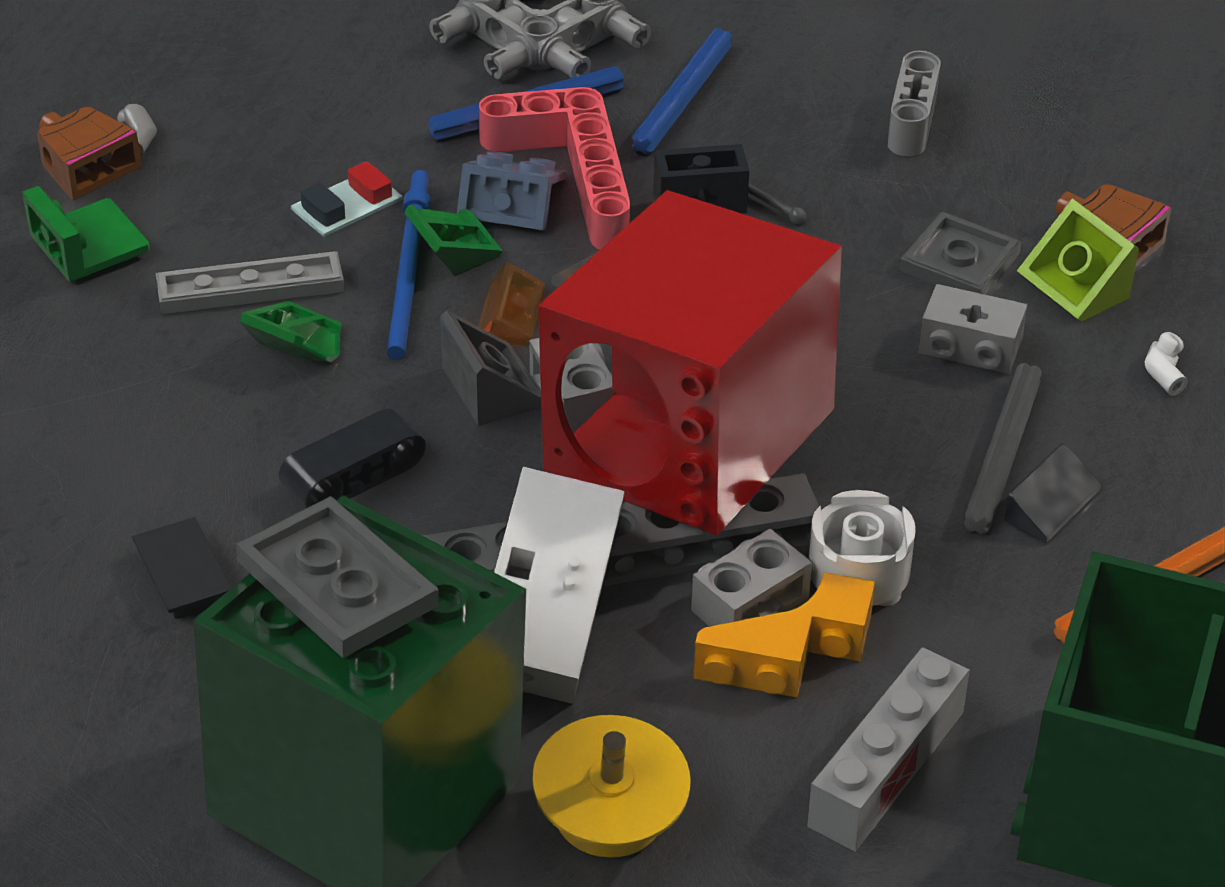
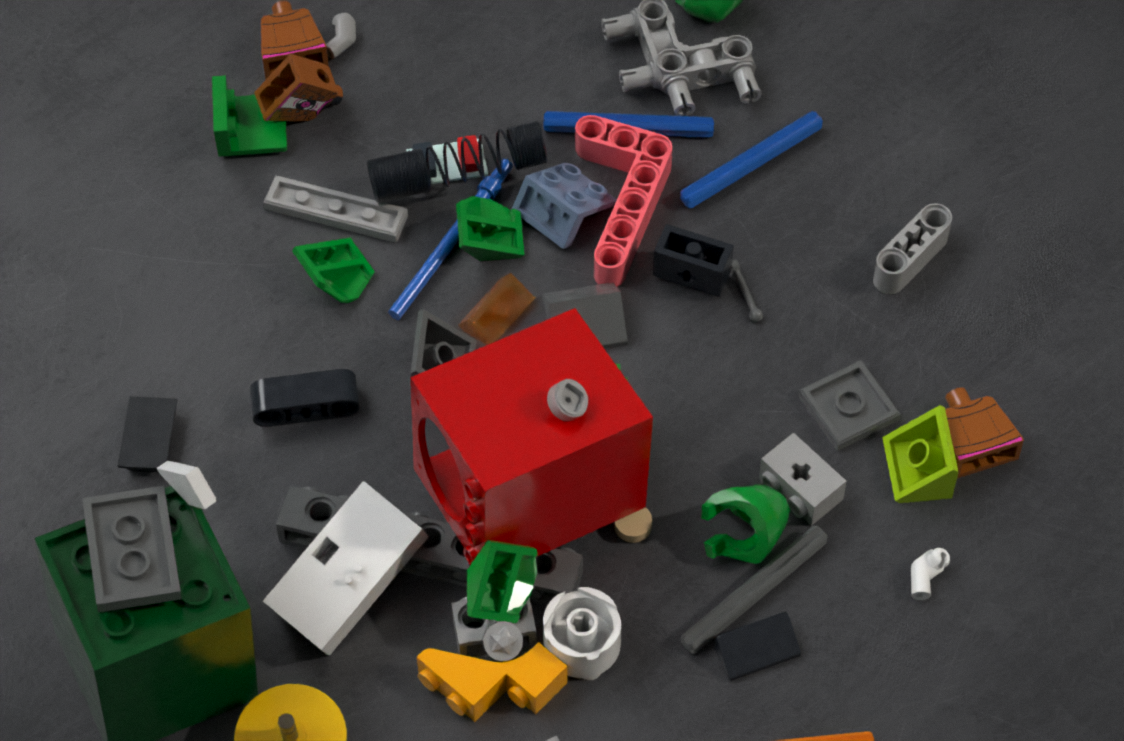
camera: 30 degrees right, 15 degrees up
(132, 178) = (297, 90): none -> dark orange torso
(331, 205) = (410, 171): none -> black piece
(359, 484) = (188, 483): none -> white tile
(742, 254) = (567, 400): none -> light grey tile
(744, 511) = (500, 581): none -> green slope
(785, 584) = (502, 641): none -> light grey tile
(826, 441) = (634, 526): none -> tan tile
(957, 368) = (760, 508): none -> green piece

